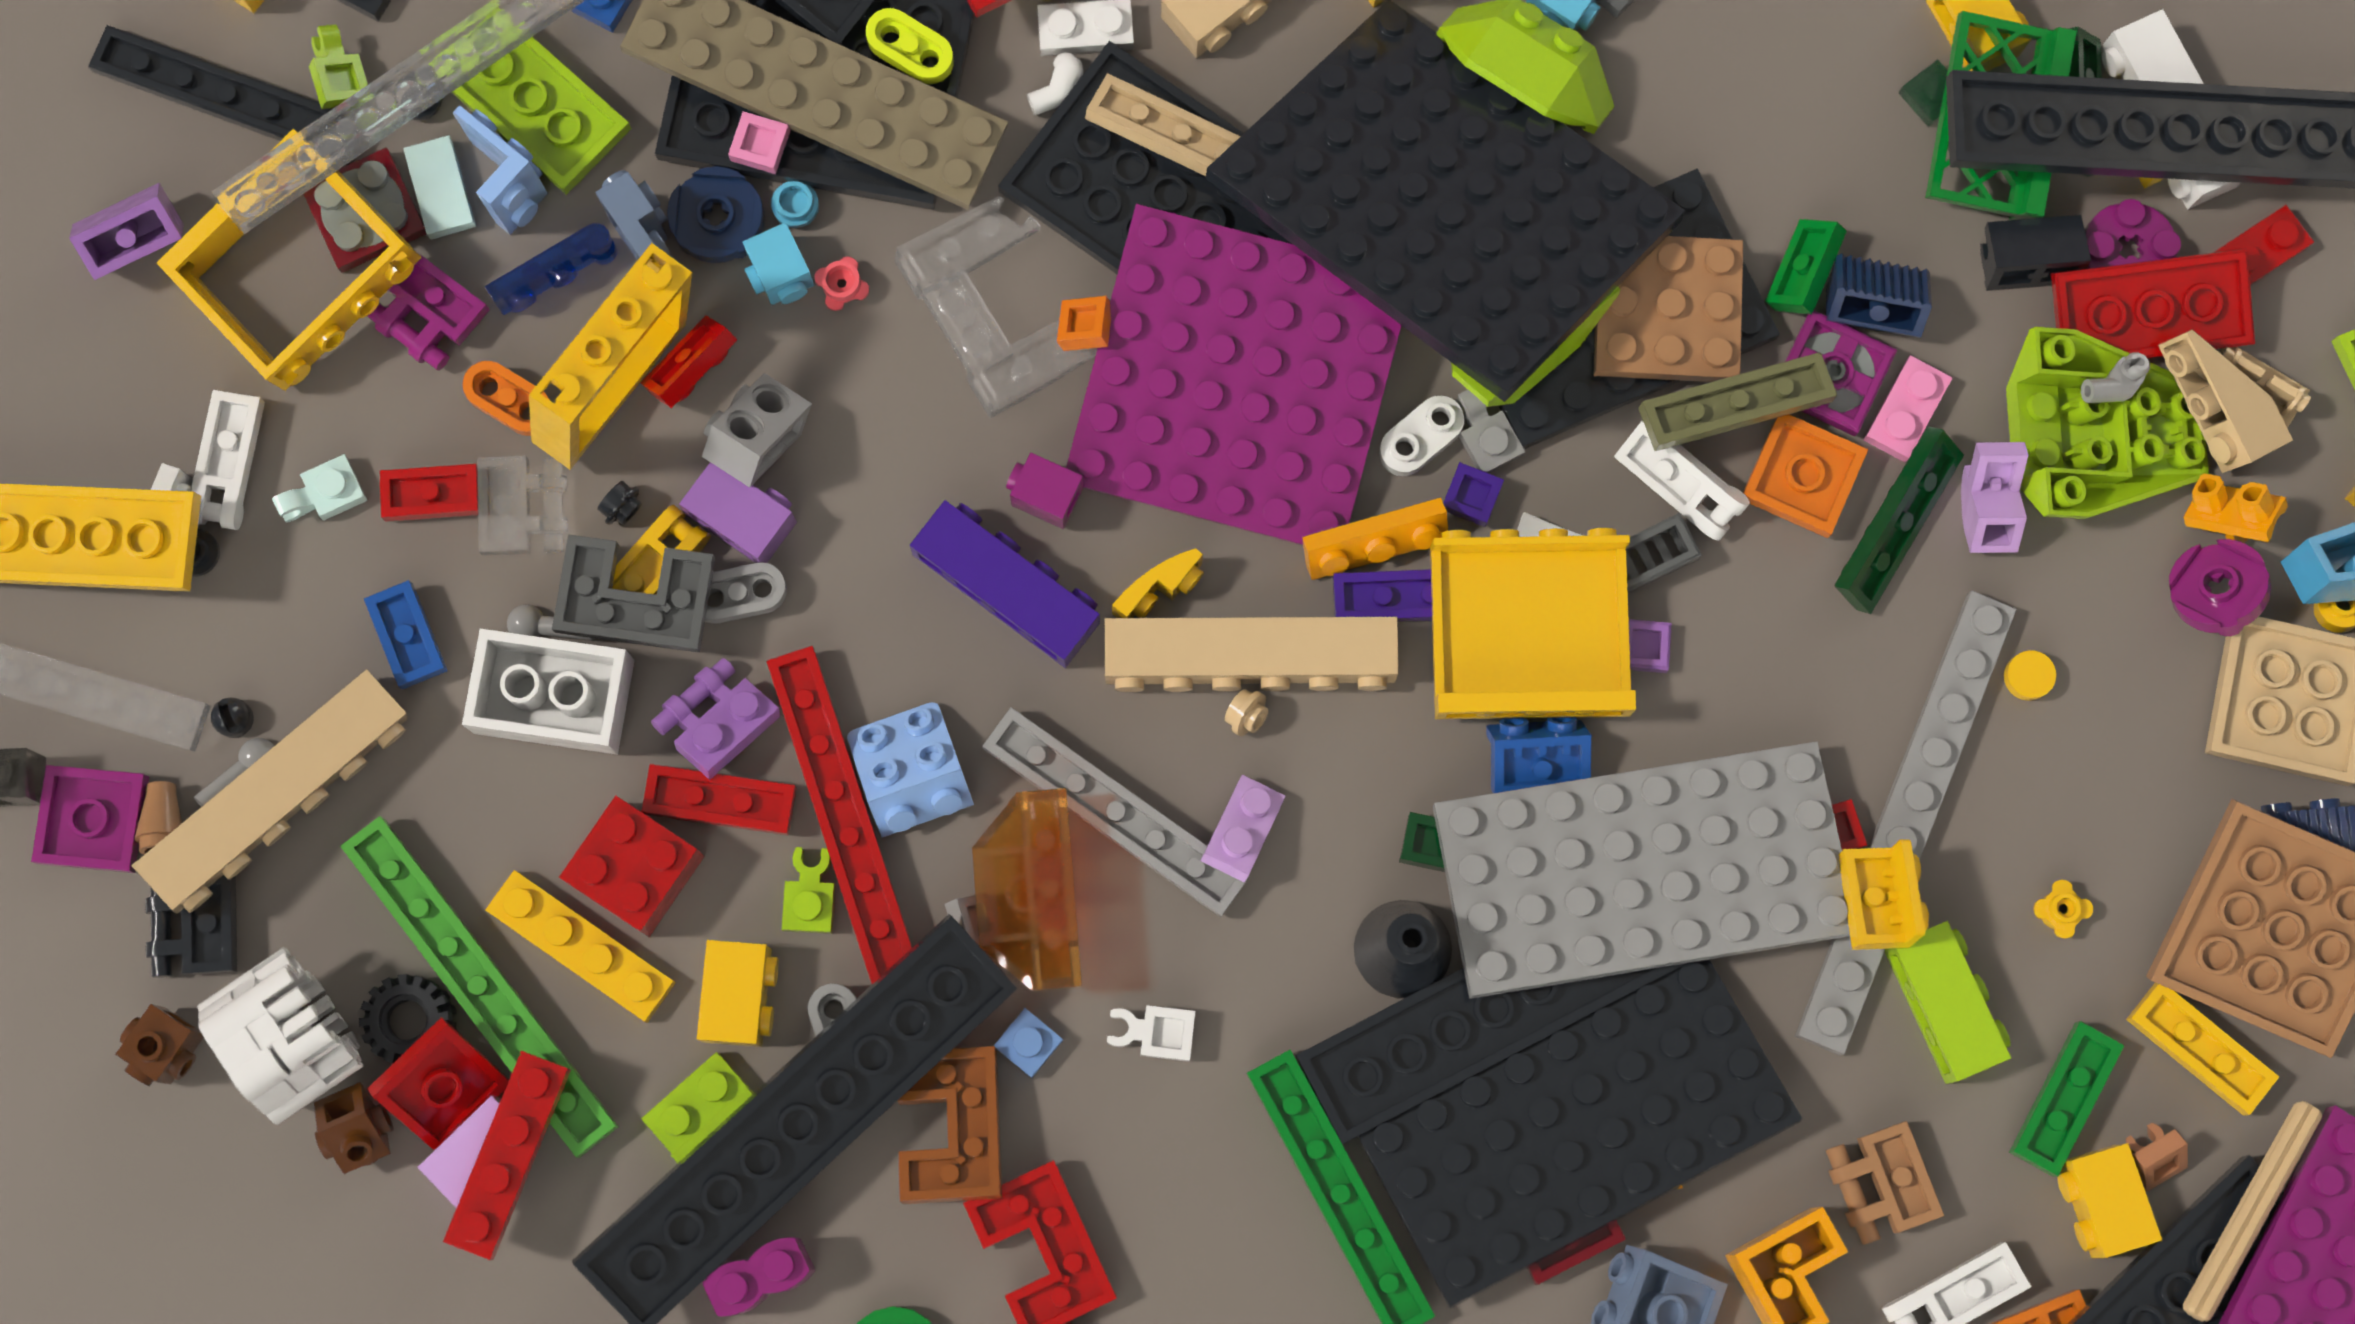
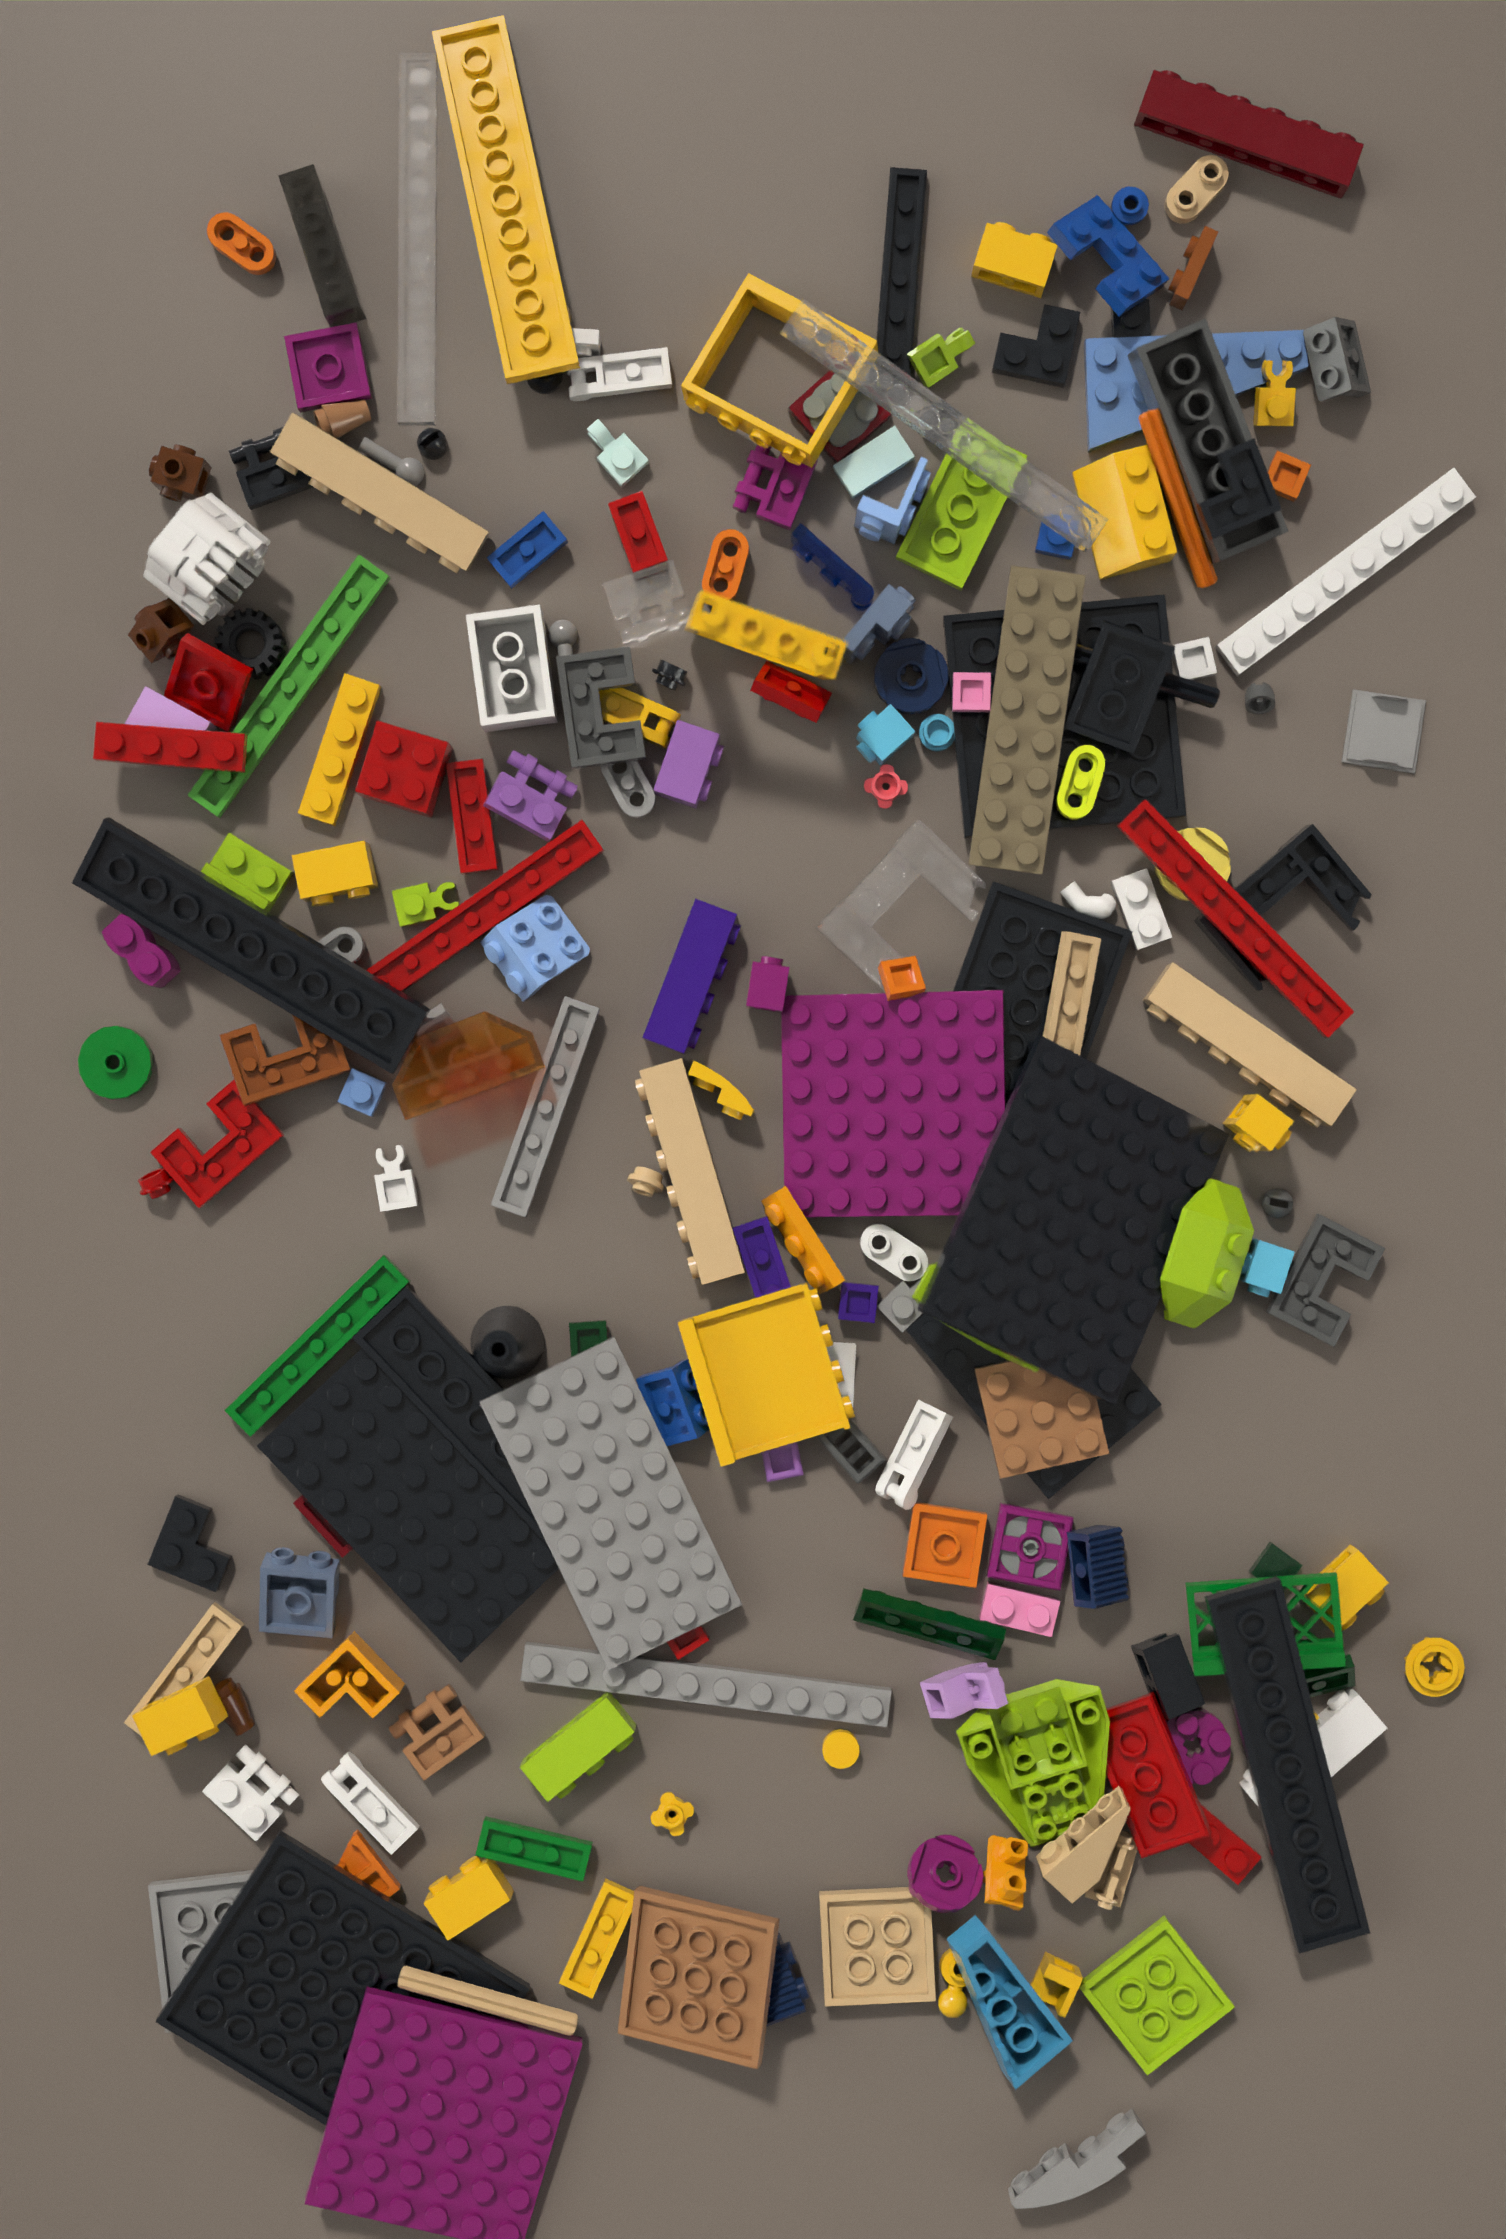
camera: 80 degrees right, 10 degrees up
(126, 231) = (767, 242): medium lavender brick -> none
(755, 429) = (749, 762): light grey brick -> none
(1243, 828) = (559, 1202): lavender plate -> none
(1737, 401) = (980, 1481): olive plate -> none
(1805, 266) = (1106, 1505): green plate -> none
(1883, 896) = (636, 1681): yellow bracket -> none
(2120, 383) = (1076, 1763): light grey arm -> none
(2161, 1158) = (508, 1926): nougat tile -> none

